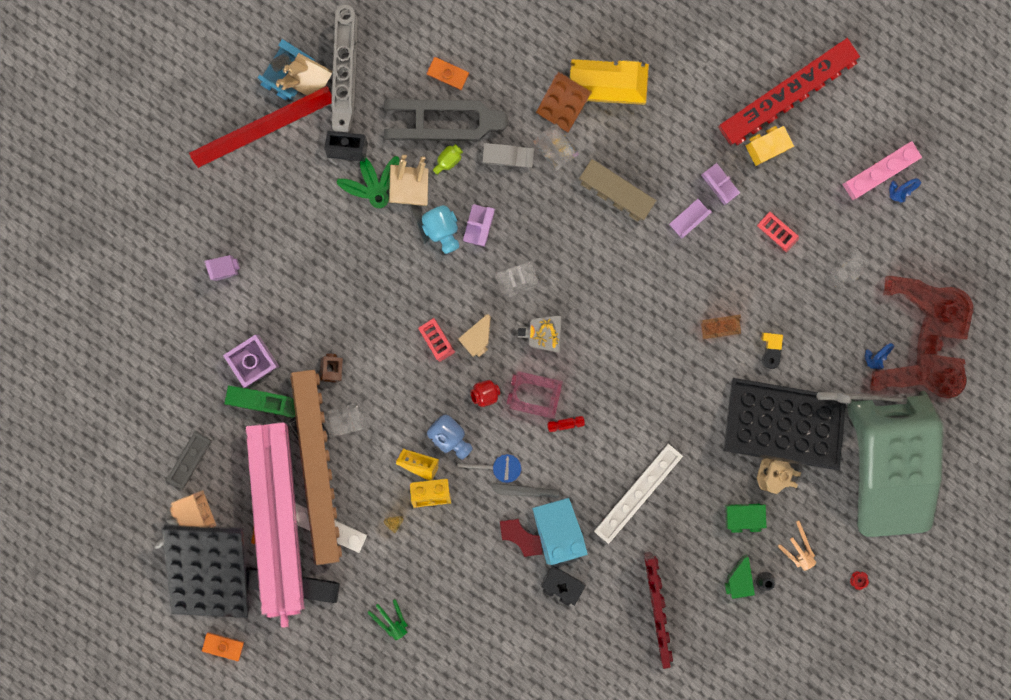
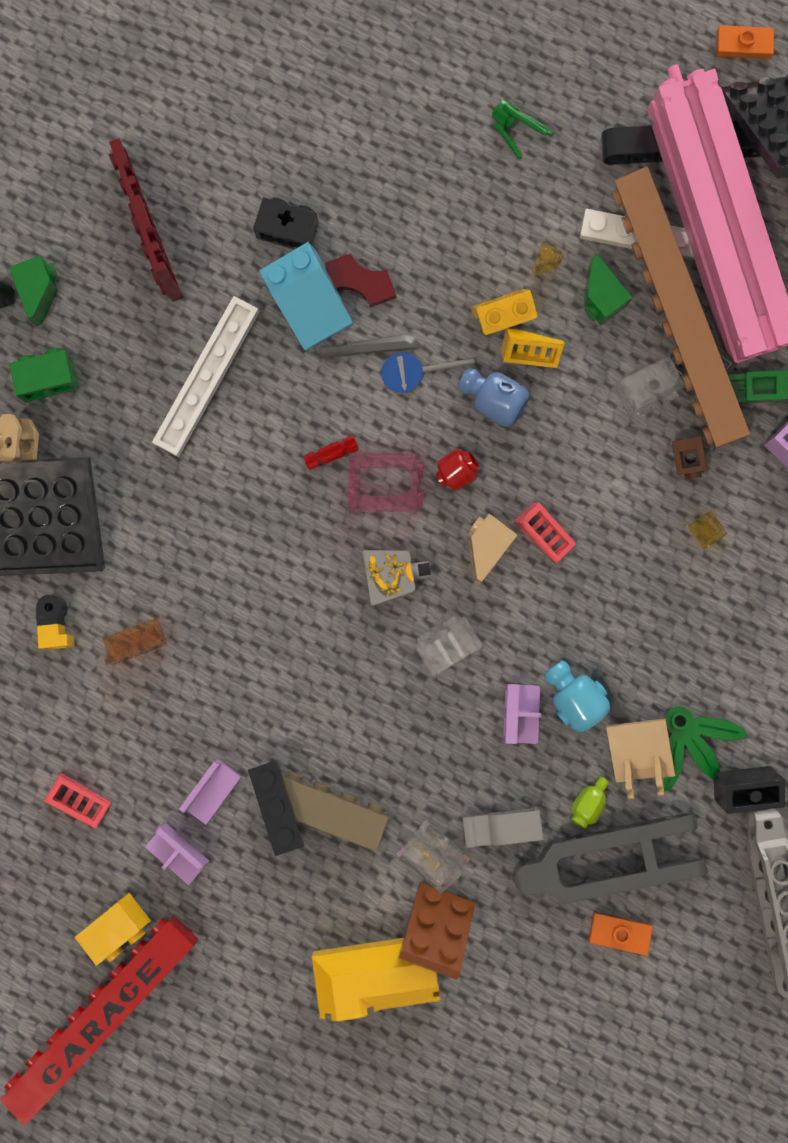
camera: 175 degrees right, 5 degrees down
(329, 318) = (707, 530): none -> clear yellow slope
(361, 490) = (603, 292): none -> green slope
(649, 199) = (276, 808): none -> black plate

